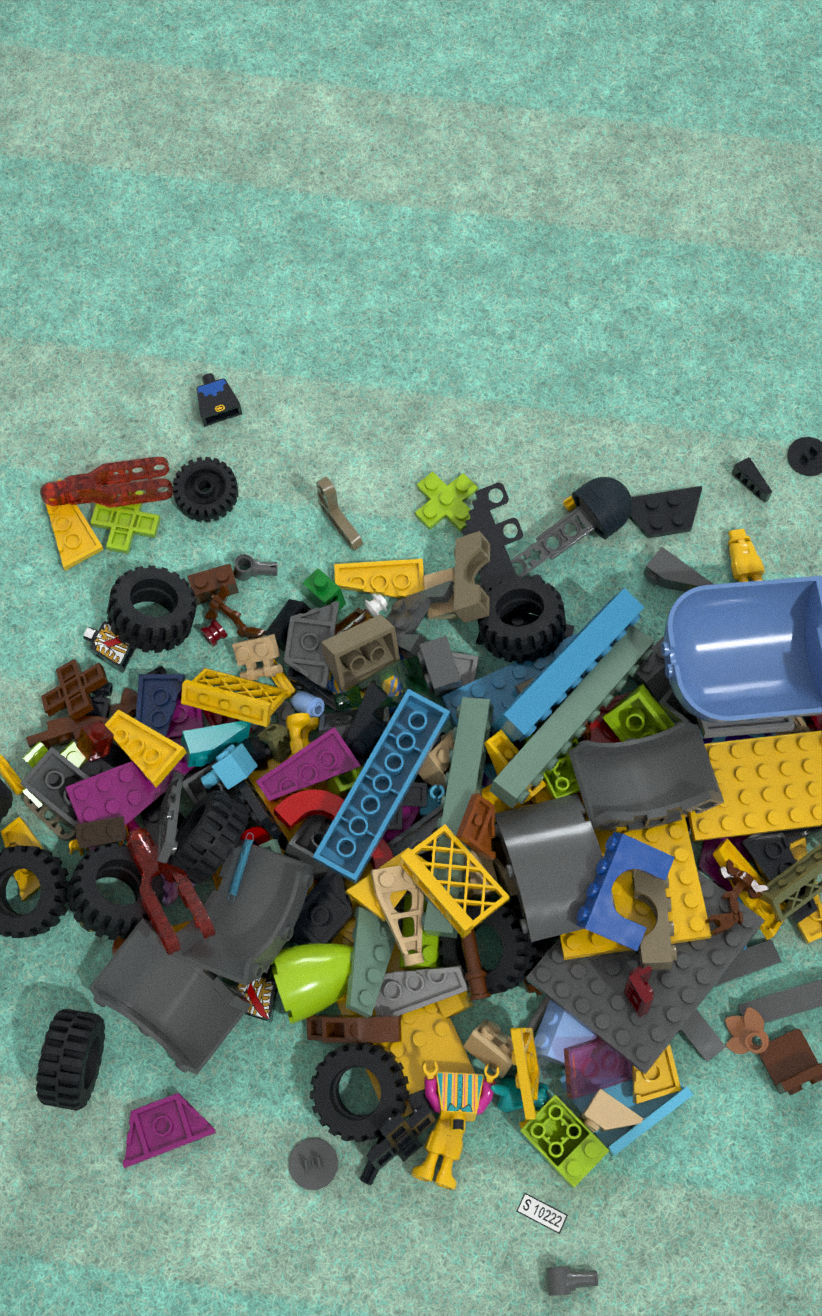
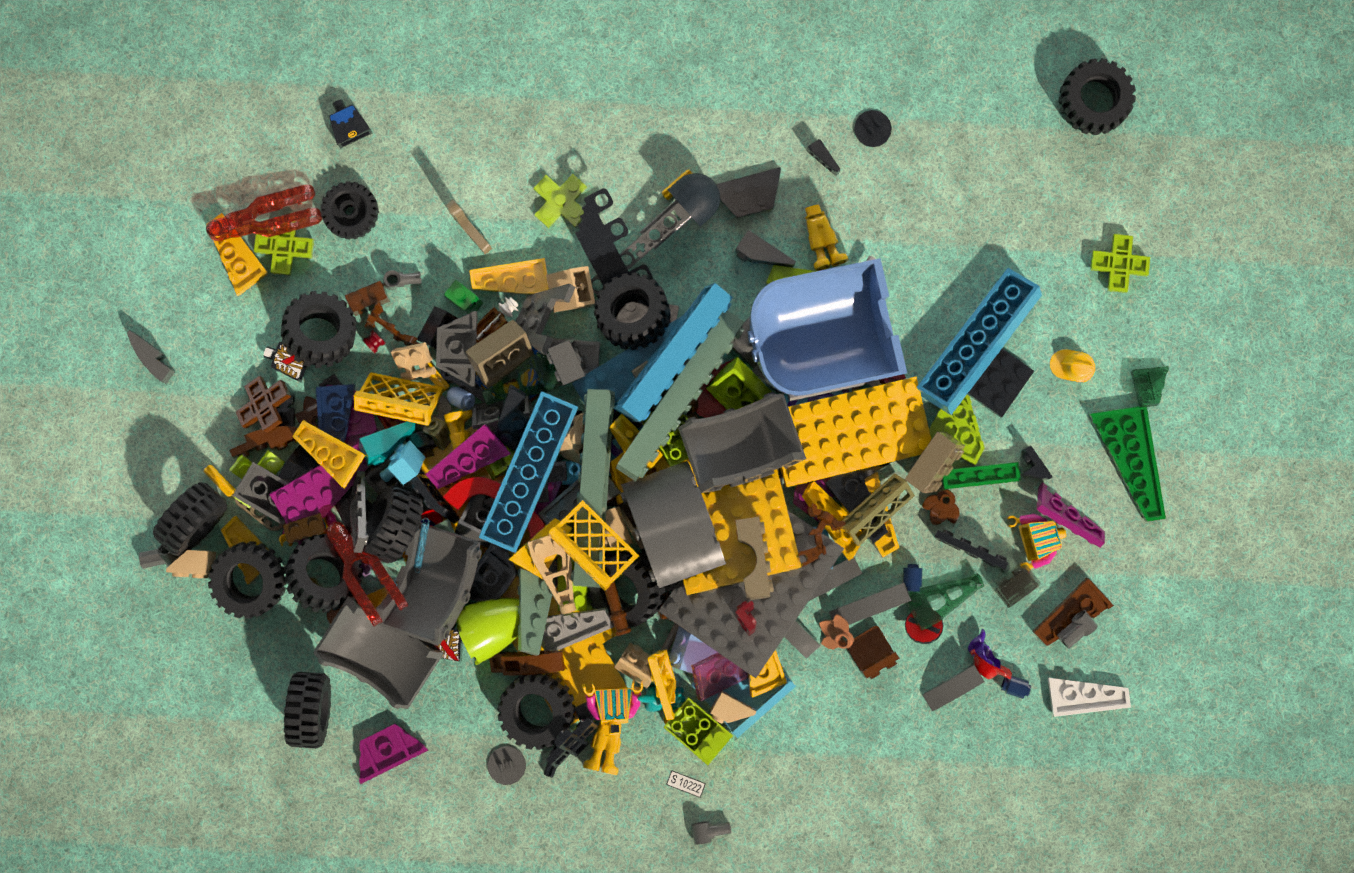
camera: 10 degrees left, 15 degrees up
(95, 740) = (287, 450): clear red brick -> none
(470, 556) = (585, 257): dark tan arch -> none
(478, 826) = (609, 499): dark orange wing -> none
(598, 911) = (723, 517): blue arch -> none

